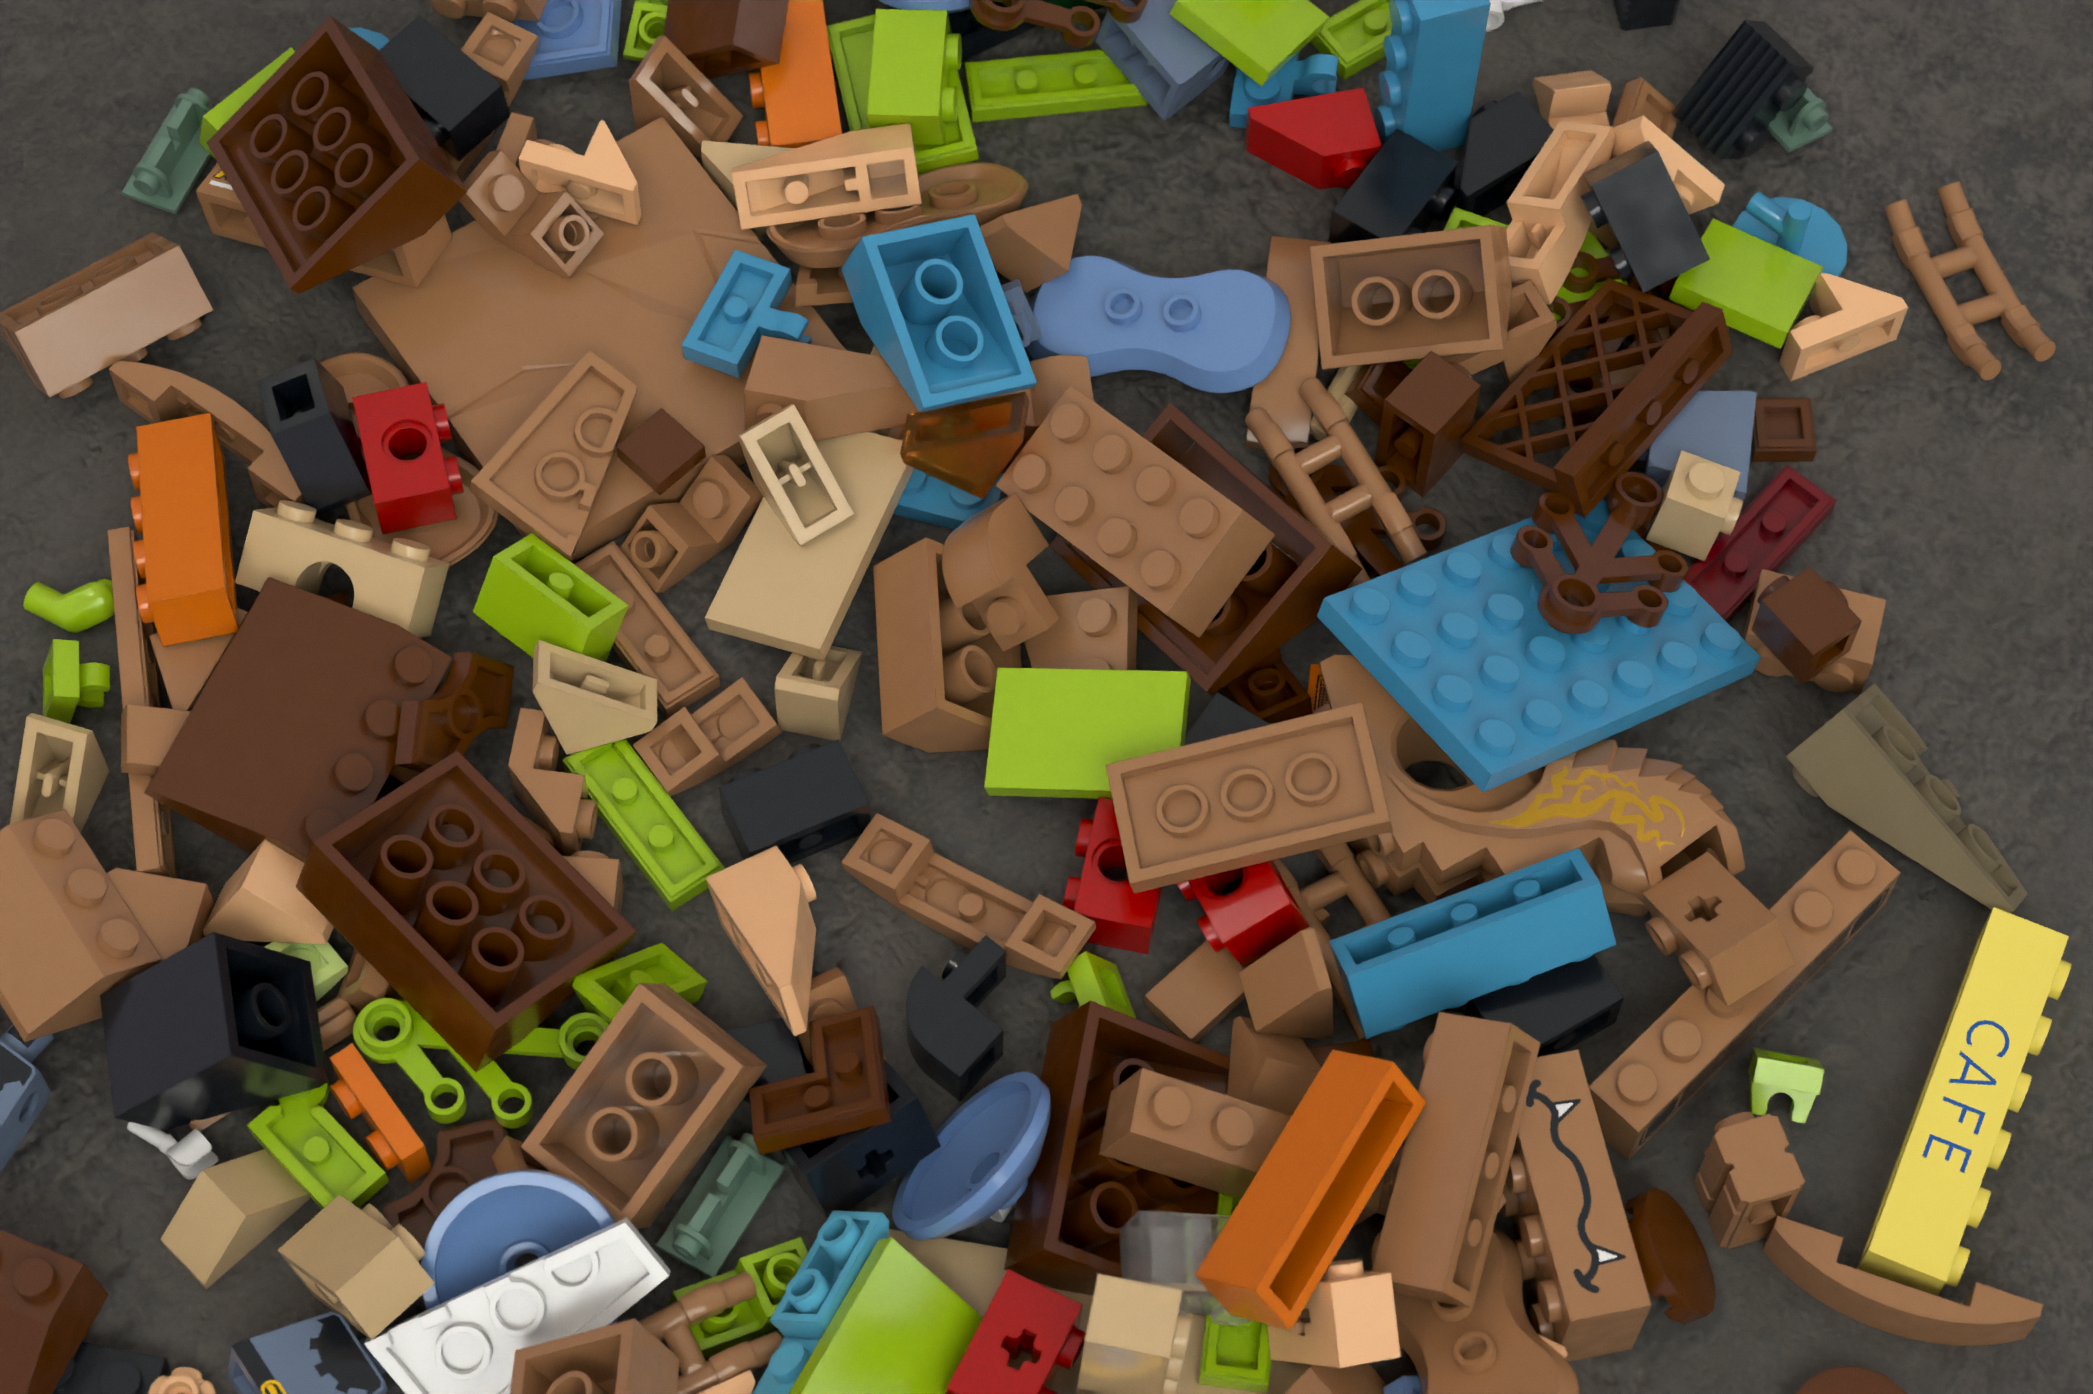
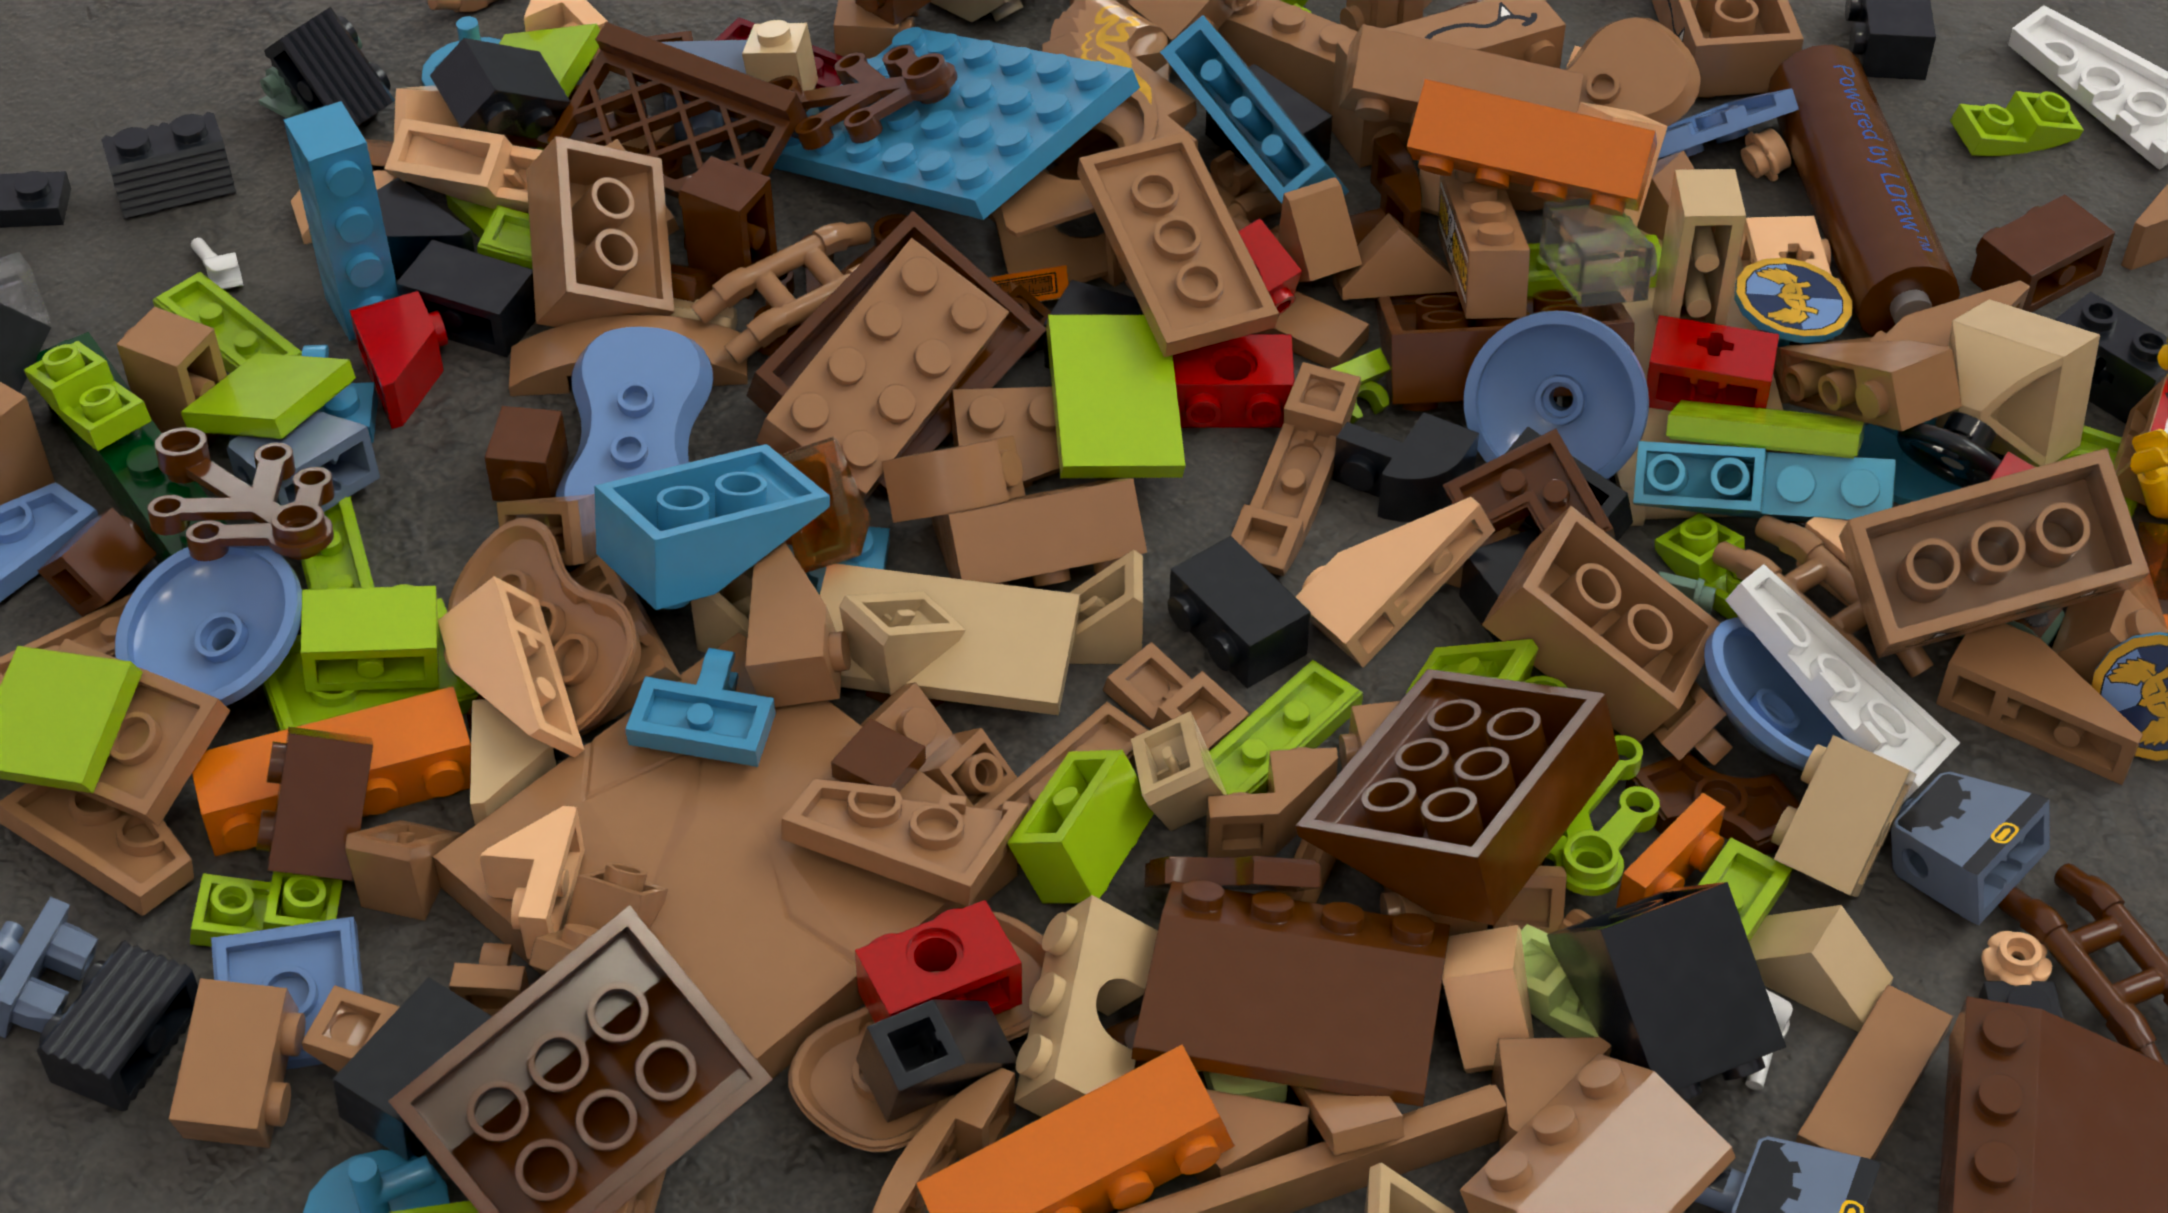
camera: 100 degrees left, 15 degrees down
(98, 1224) = (1876, 1075): none -> medium nougat tile
(1152, 231) = (526, 454): none -> reddish brown brick

